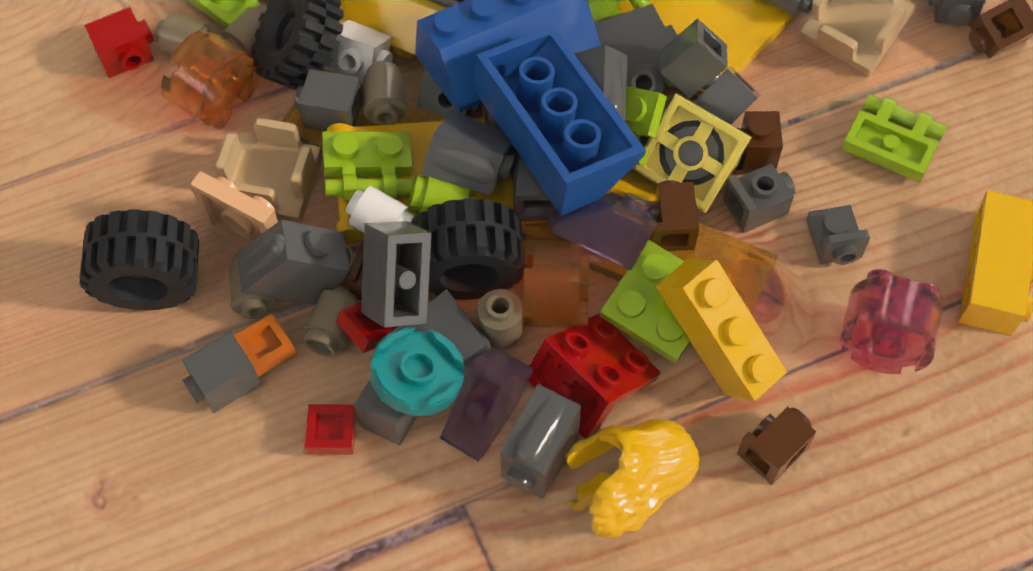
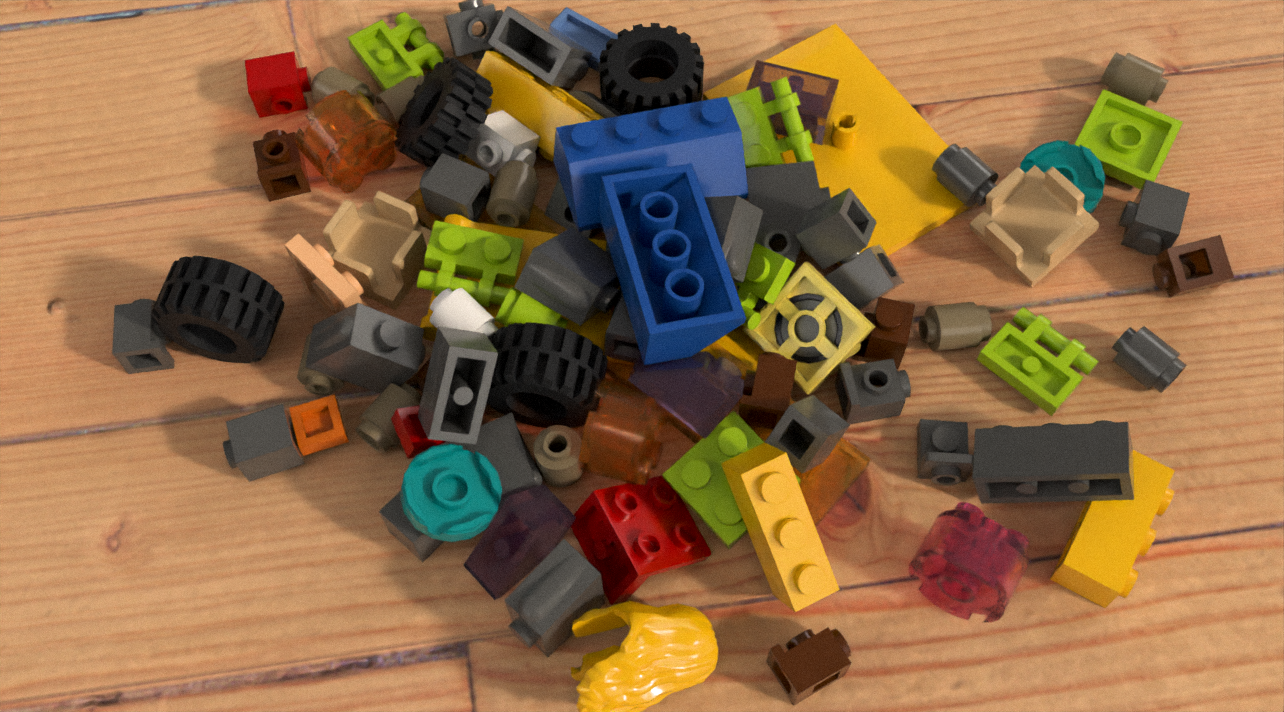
camera: 15 degrees right, 0 degrees up
(67, 306) = (136, 339): none -> dark grey brick
(145, 109) = (277, 158): none -> reddish brown brick
(330, 429) = (354, 529): red plate -> none
(721, 239) = (807, 433): none -> dark grey brick
(815, 123) = (955, 326): none -> dark tan brick
(938, 219) = (1054, 463): none -> dark grey brick
(988, 114) = (1148, 358): none -> dark grey brick

